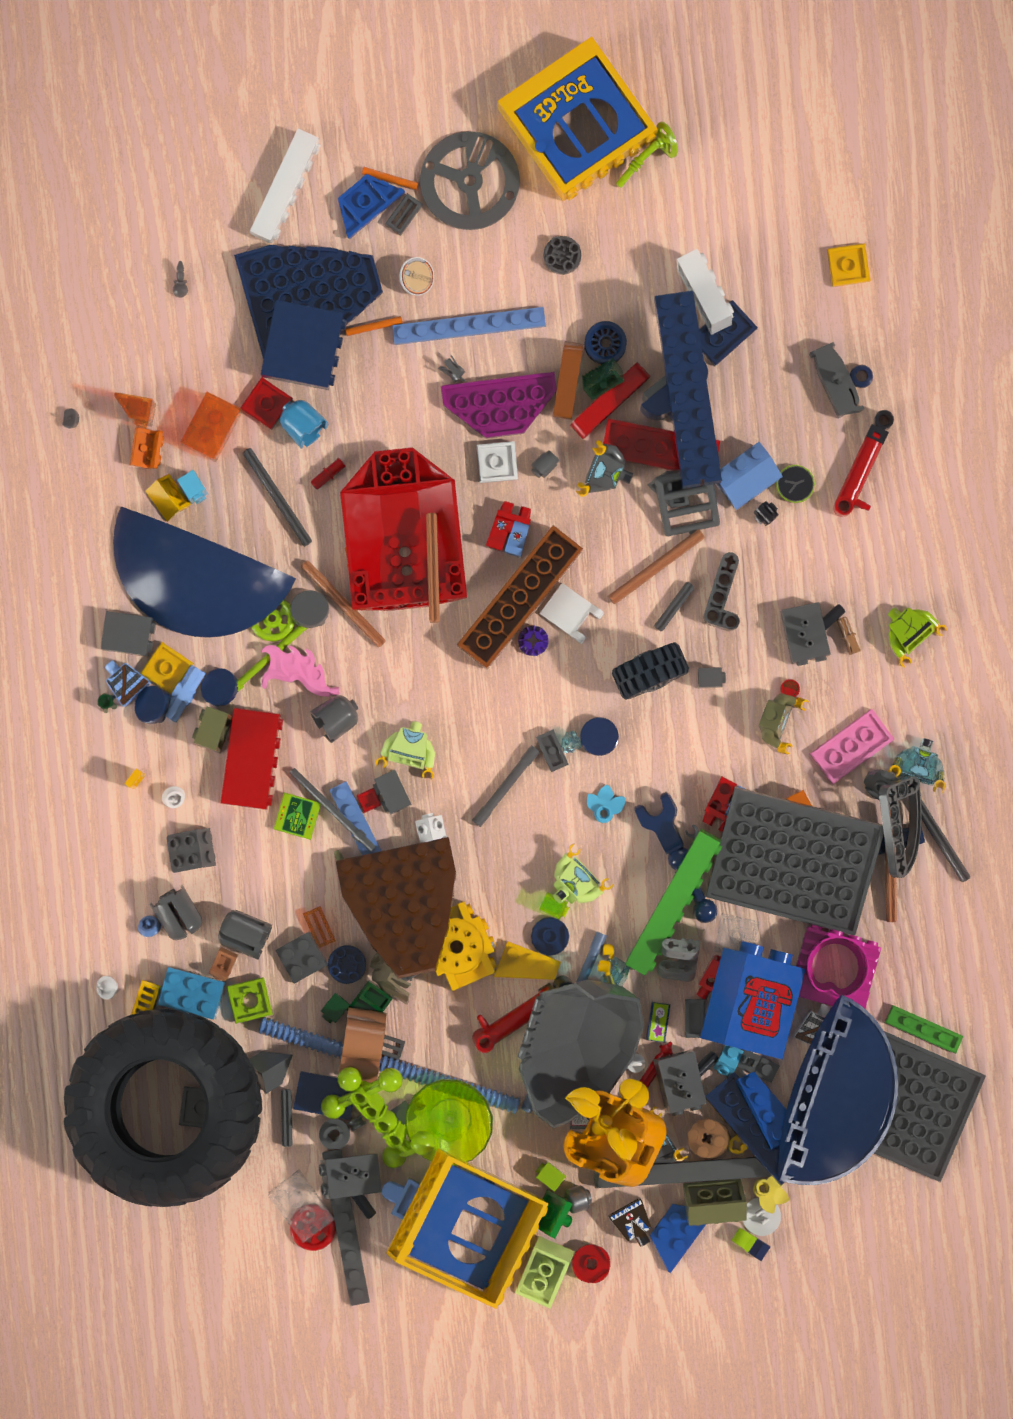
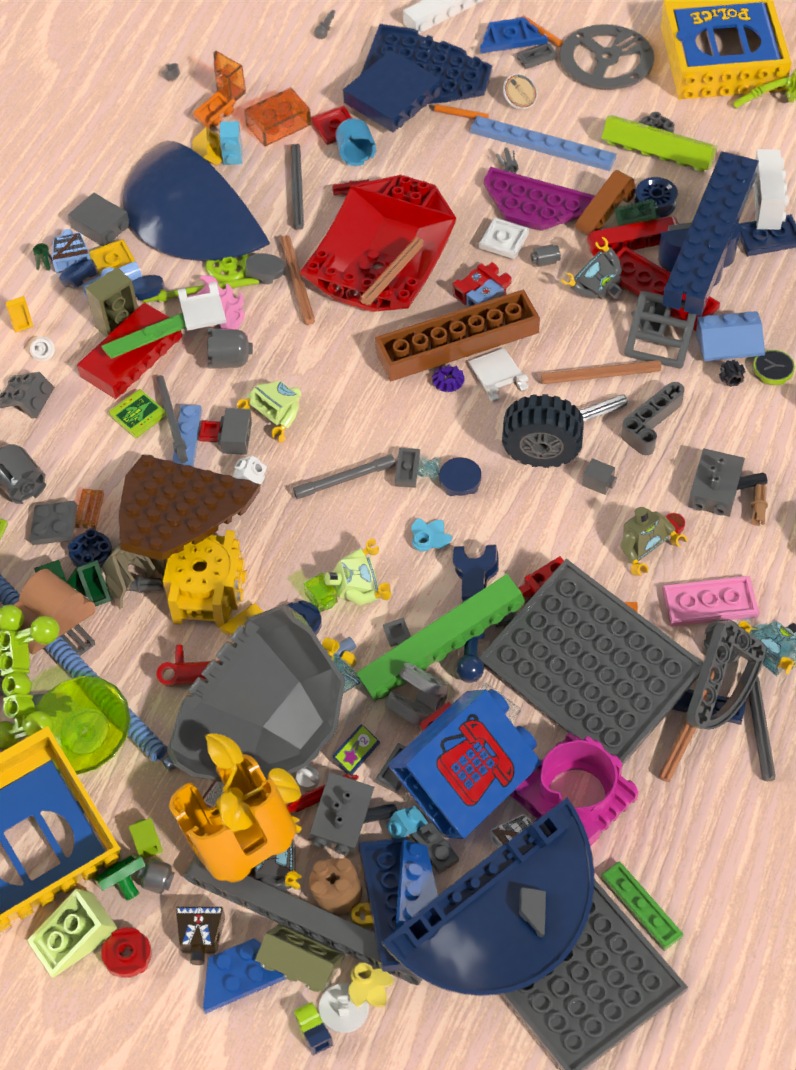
camera: 30 degrees right, 30 degrees down
(268, 736) = (144, 336): none -> bright green piece
(291, 691) = (202, 309): none -> white flag
(577, 278) = (659, 142): none -> lime brick
(633, 909) = (396, 632): none -> dark grey plate
(856, 1081) = (532, 909): none -> dark grey tile

